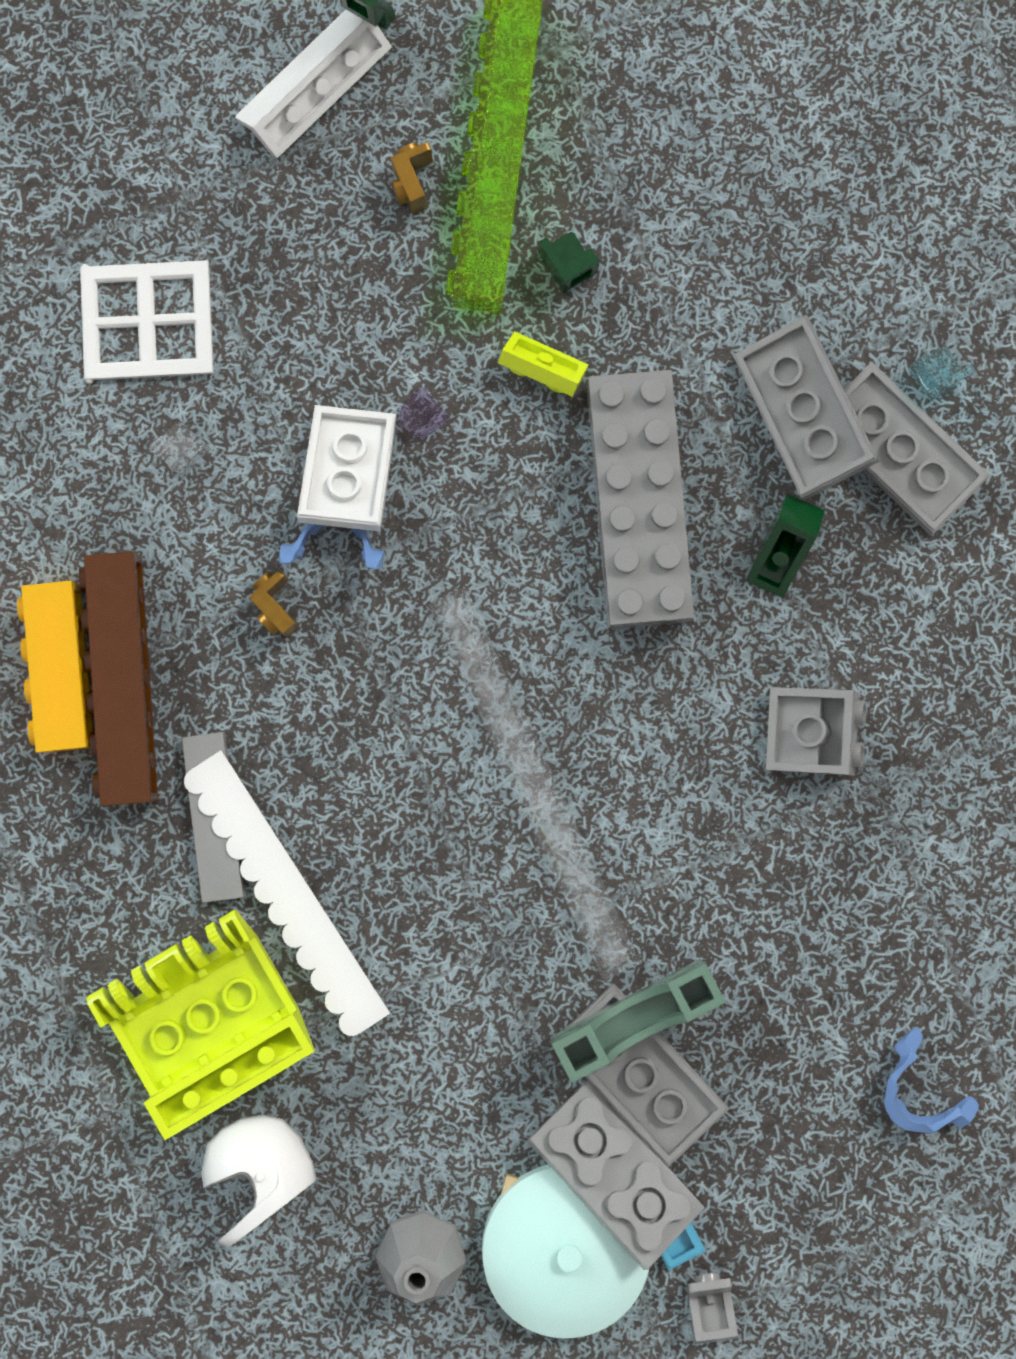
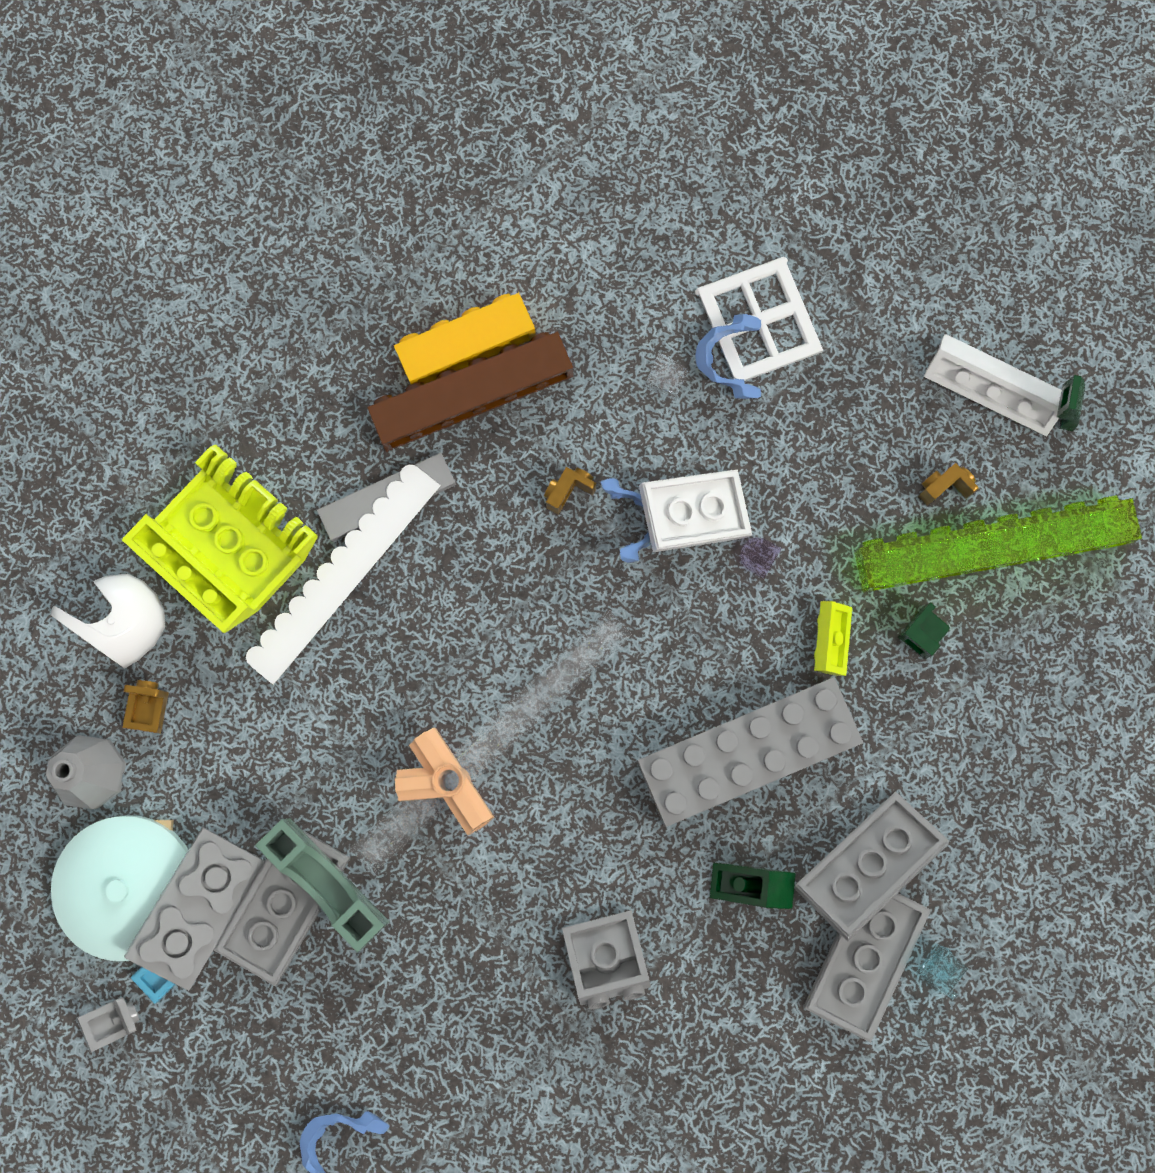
camera: 75 degrees right, 5 degrees down
(172, 398) = (705, 358): none -> medium blue helmet
(368, 1168) = (145, 707): none -> pearl gold bracket
(562, 867) = (429, 782): none -> light nougat piece

